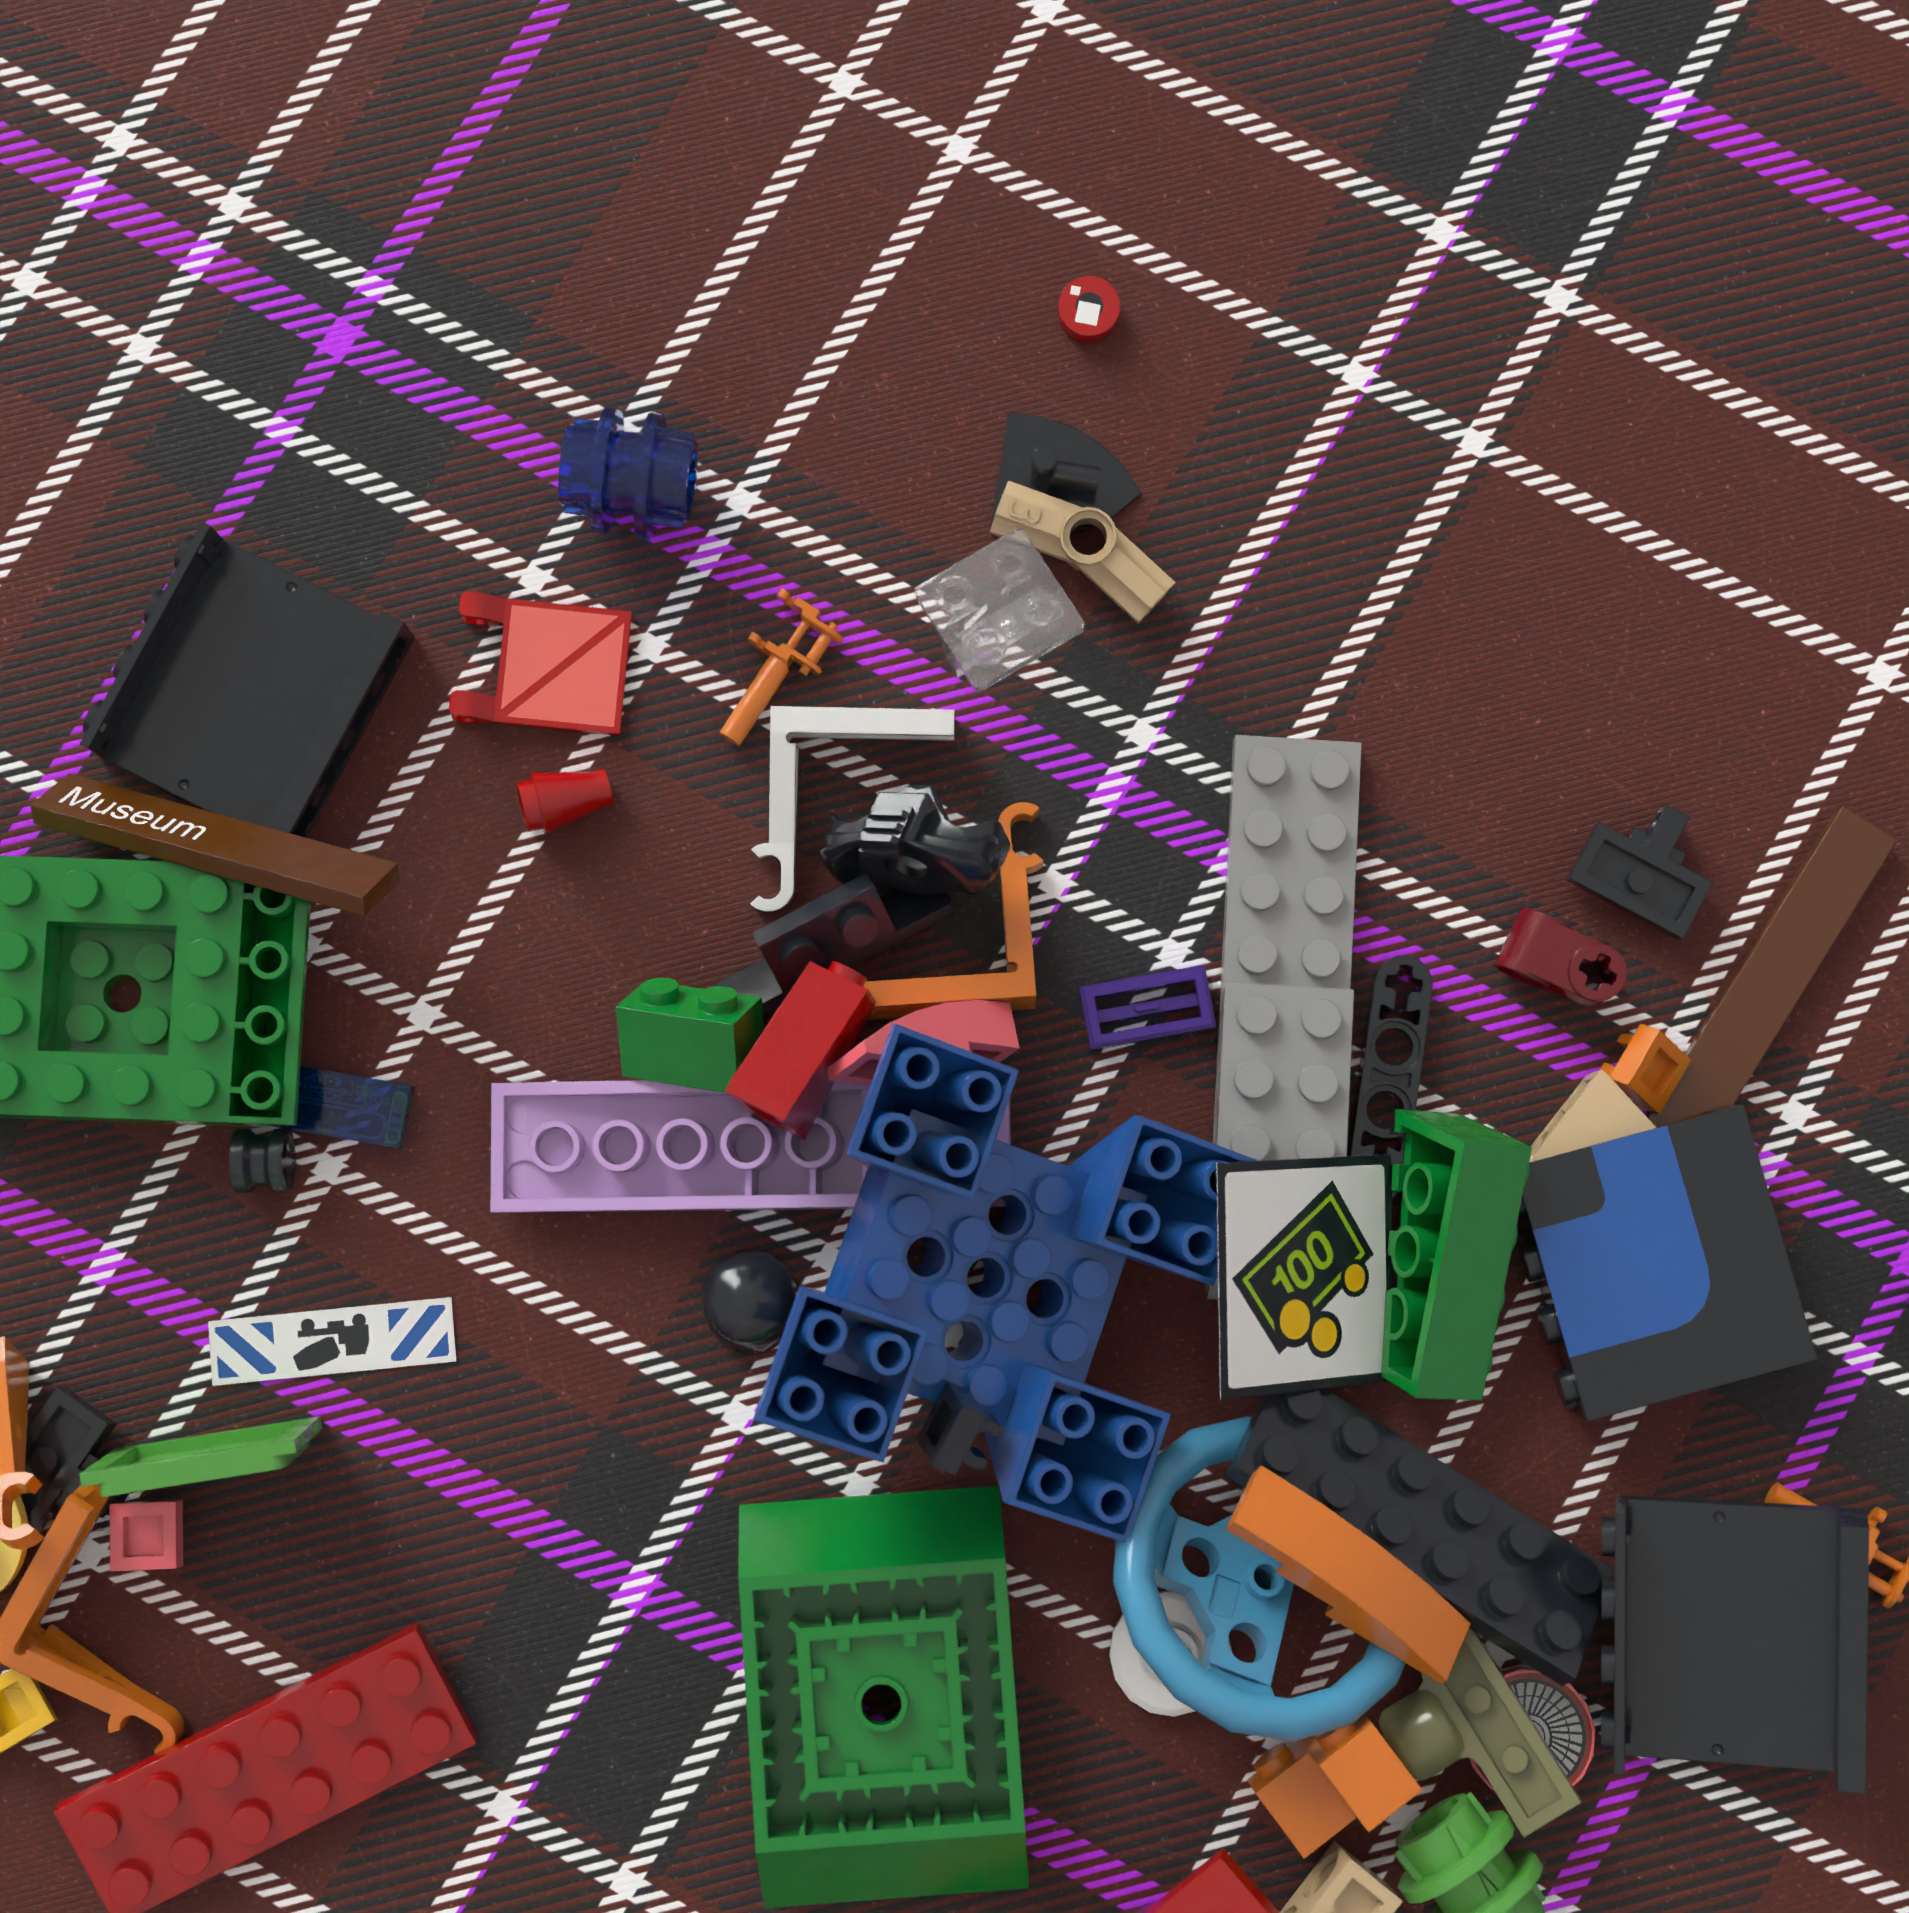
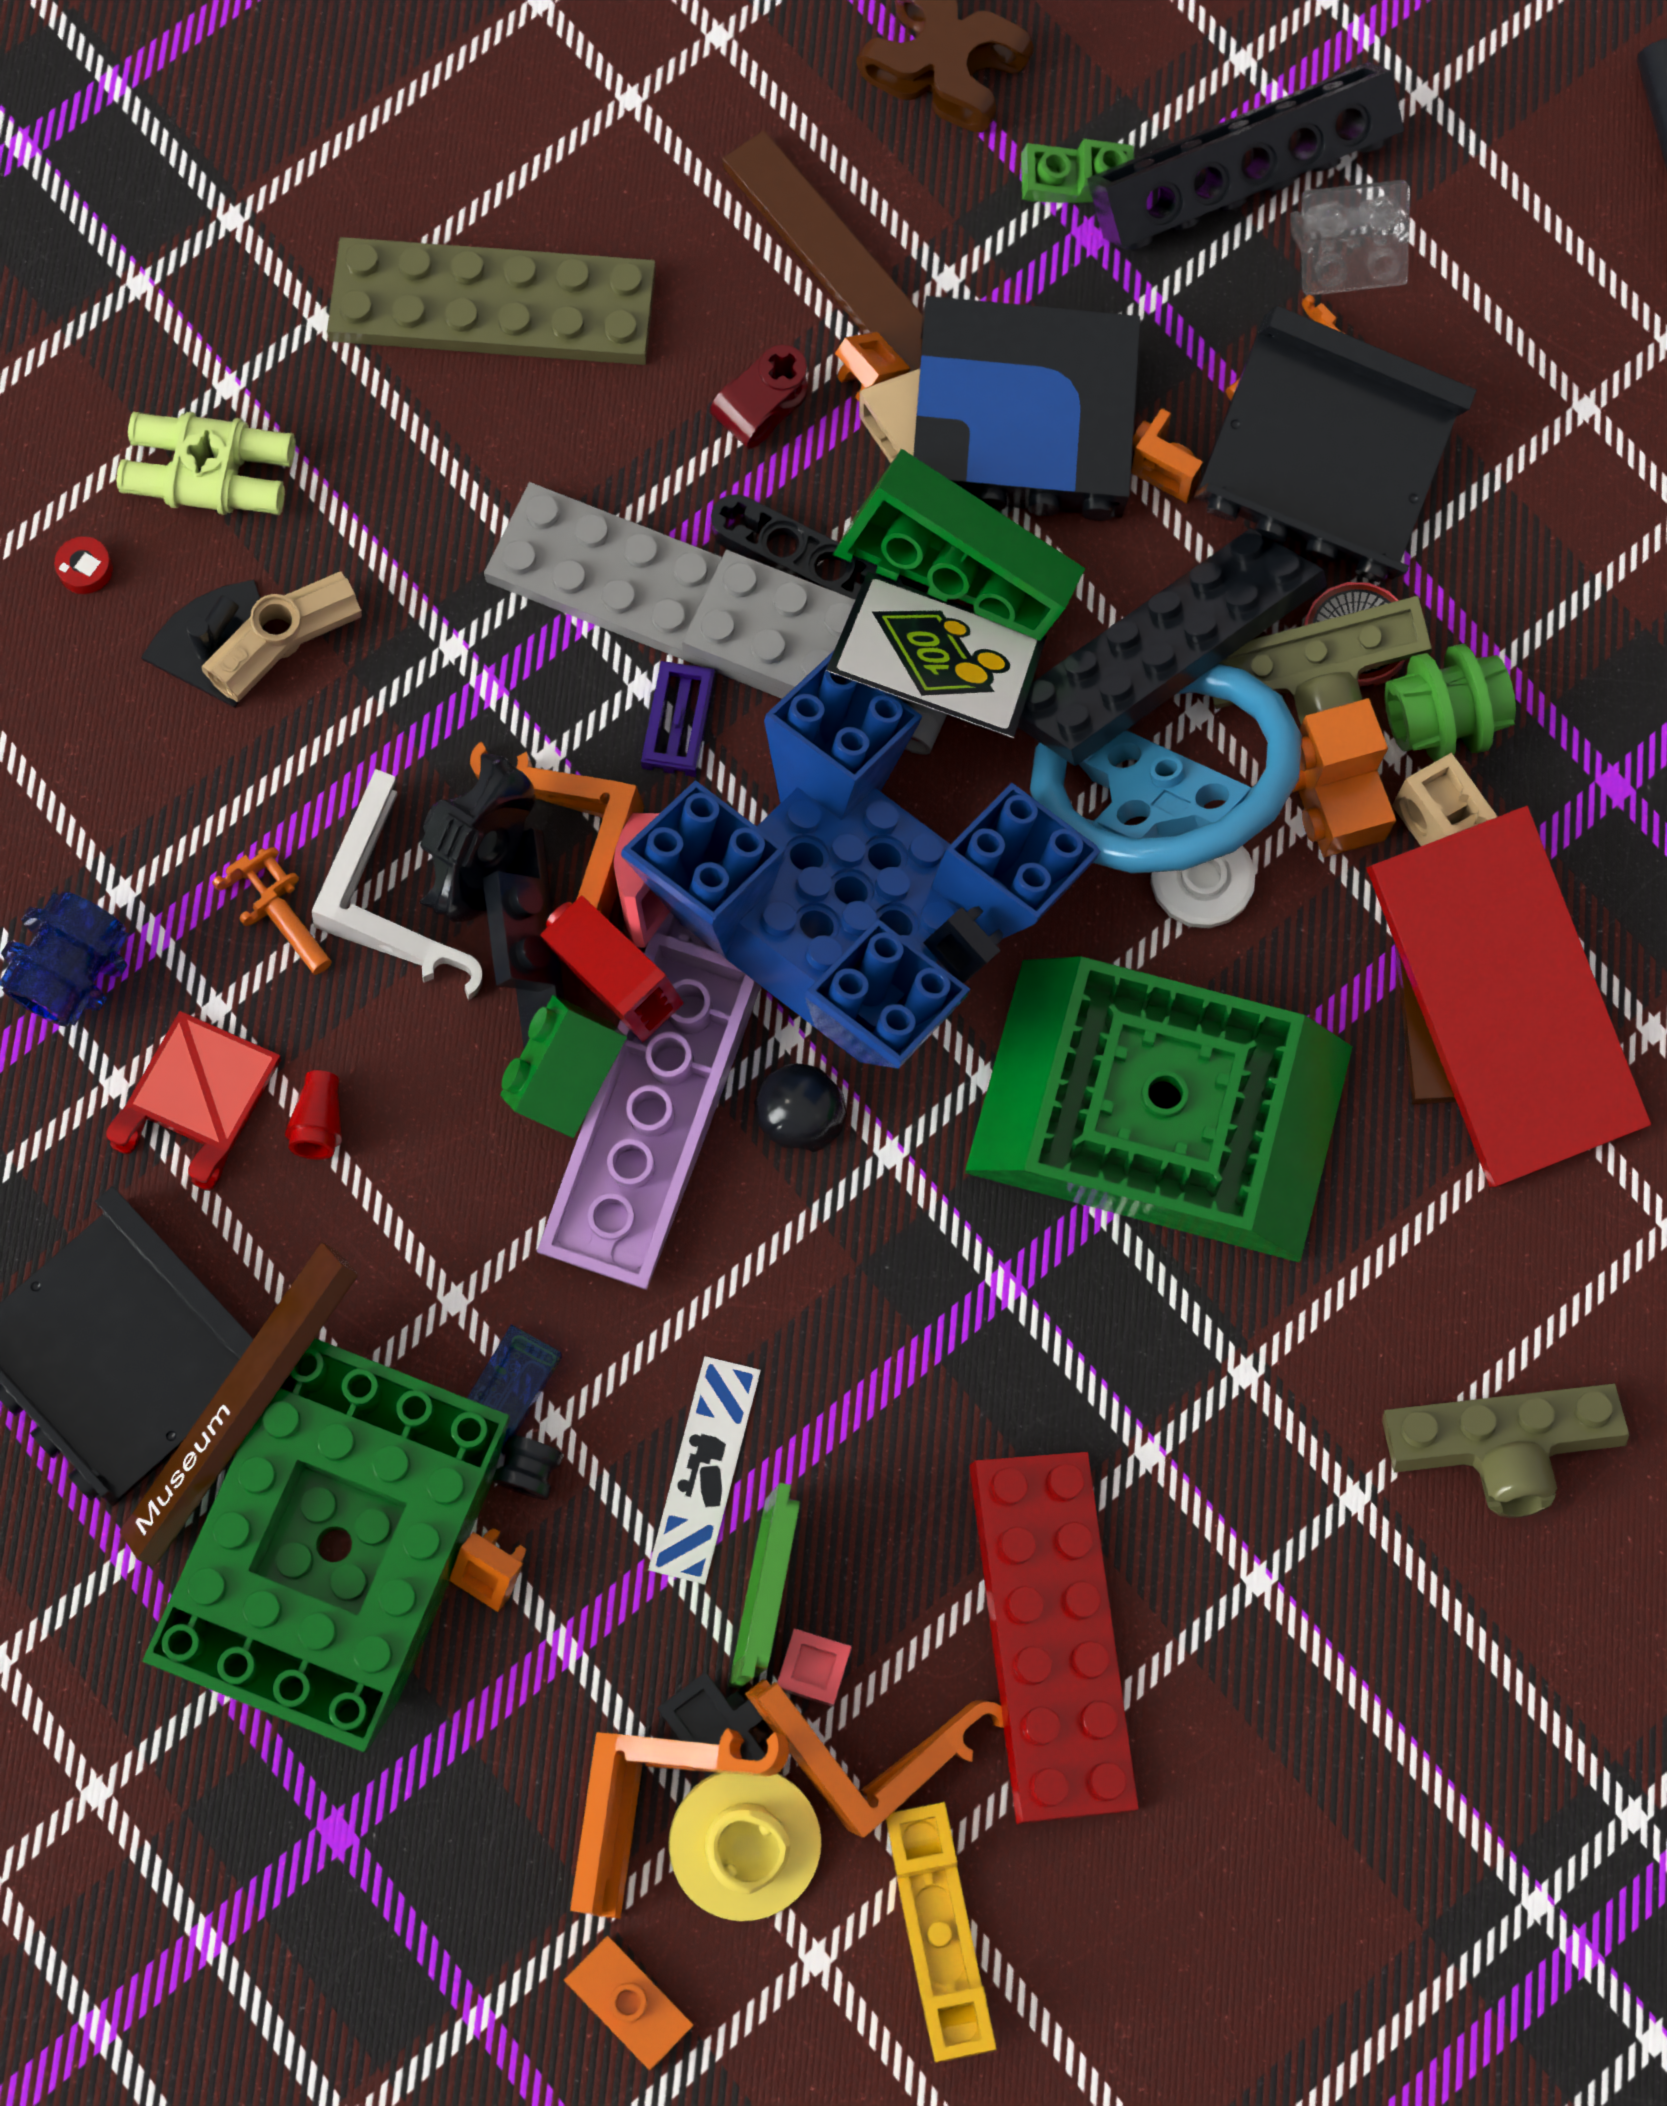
camera: 70 degrees left, 10 degrees down
(142, 1160) = (486, 1569): none -> orange tile
(998, 610) = (308, 708): clear bracket -> none
(1233, 411) = (218, 481): none -> yellowish green pin
(1351, 1573) = (1189, 689): orange slope -> none
(1568, 619) = (492, 301): none -> olive plate
(1643, 873) = (717, 315): black hinge -> none
(1651, 1450) = (1164, 463): none -> orange bracket

